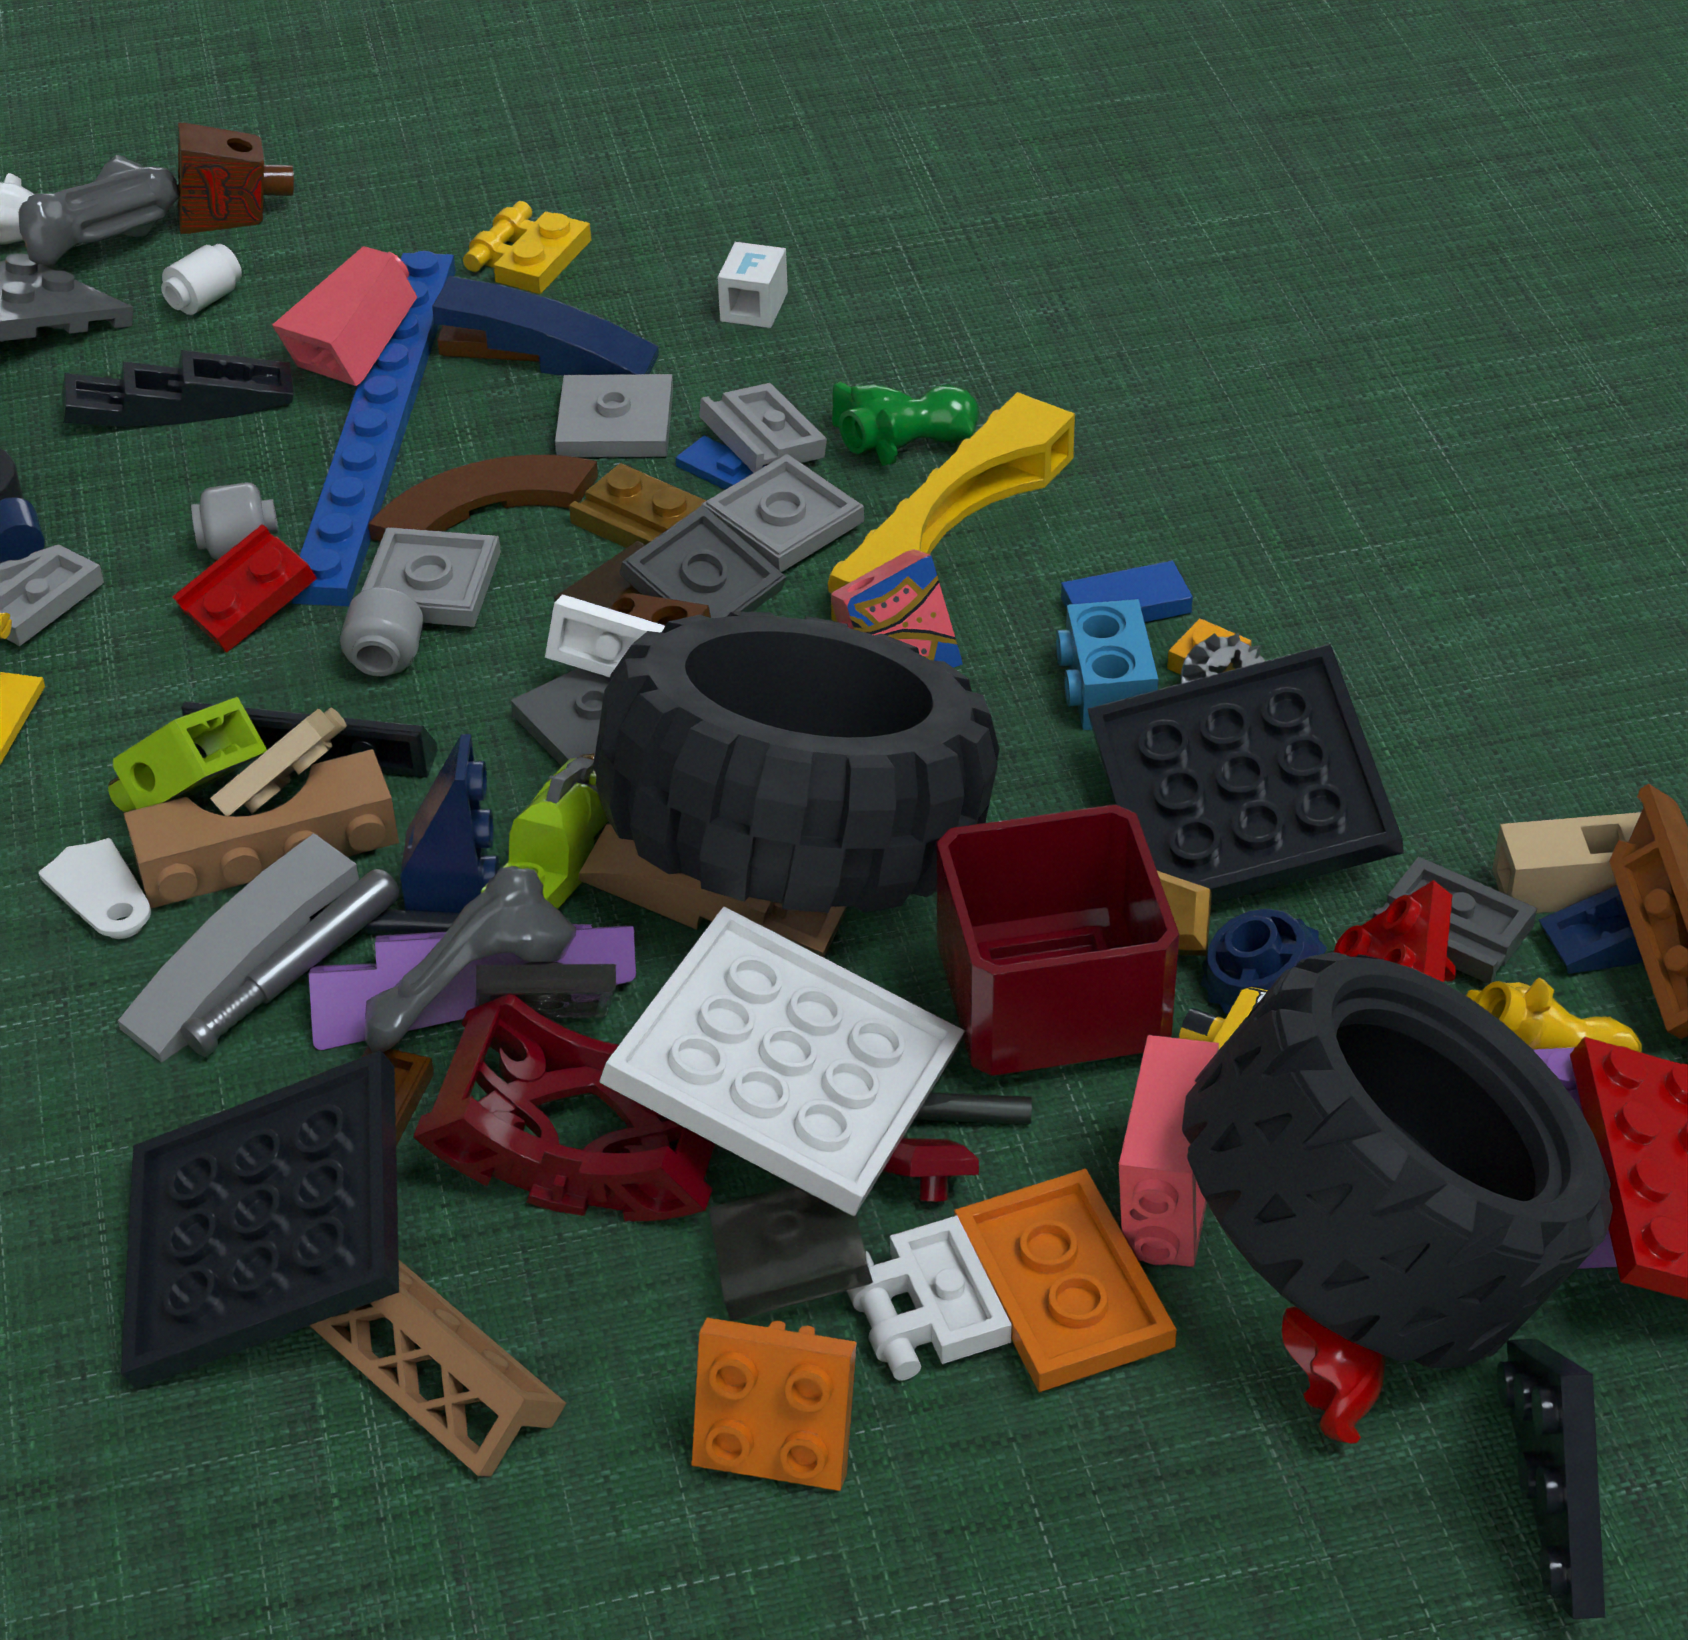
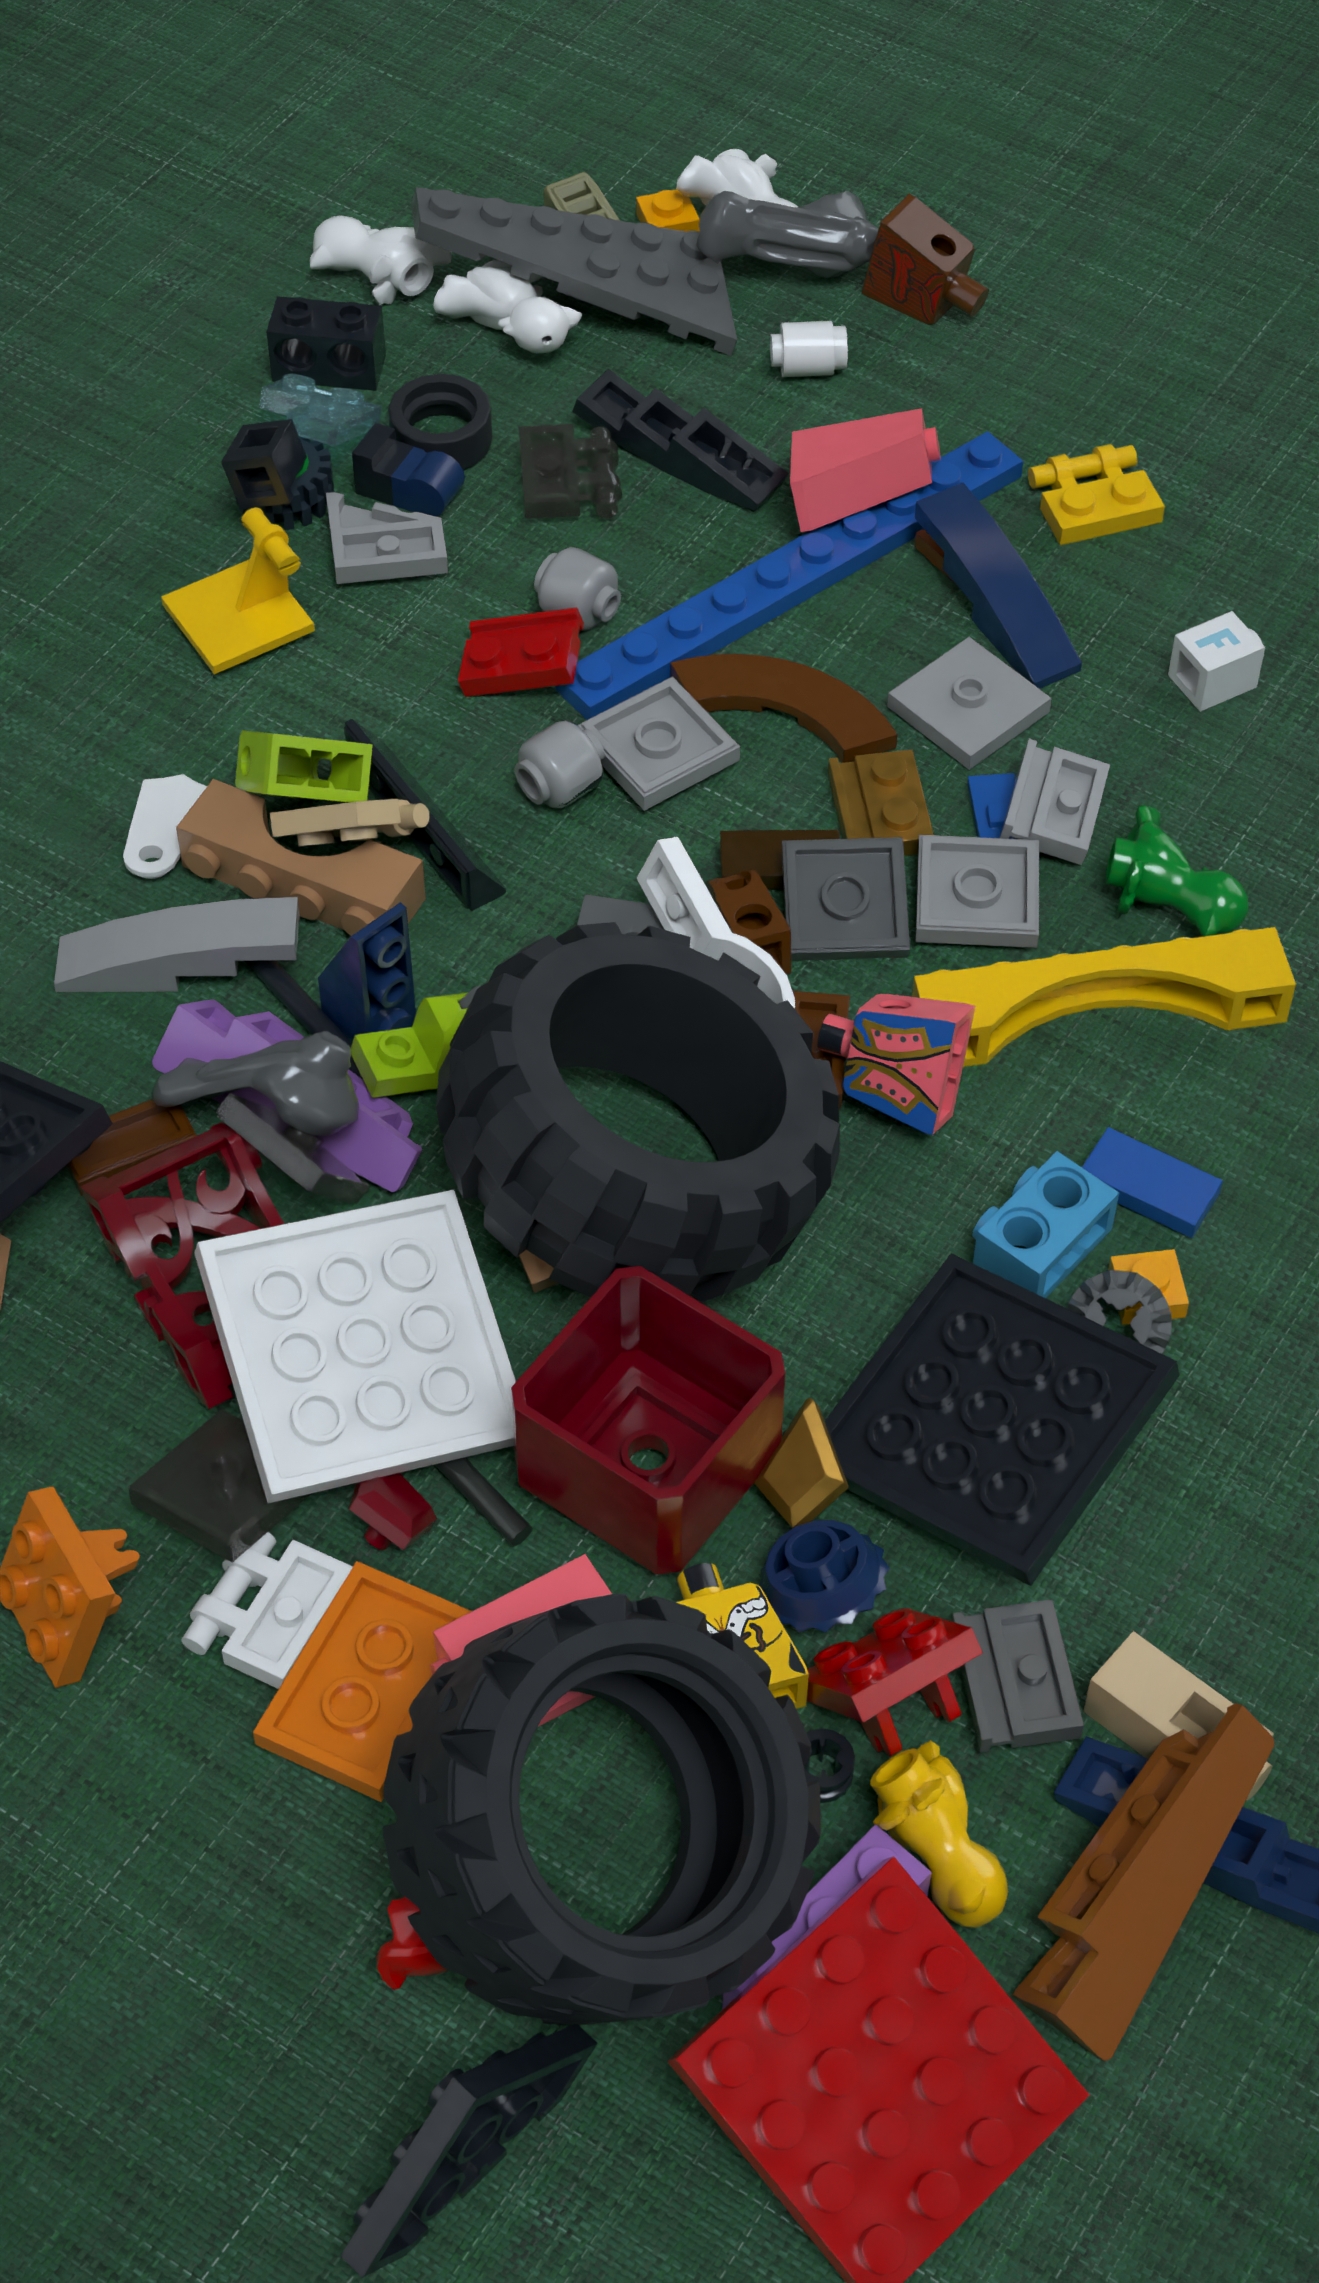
camera: 45 degrees right, 10 degrees up
(113, 464) = (551, 476): none -> clear smoke plate
(304, 950) = (224, 982): flat silver piece -> none

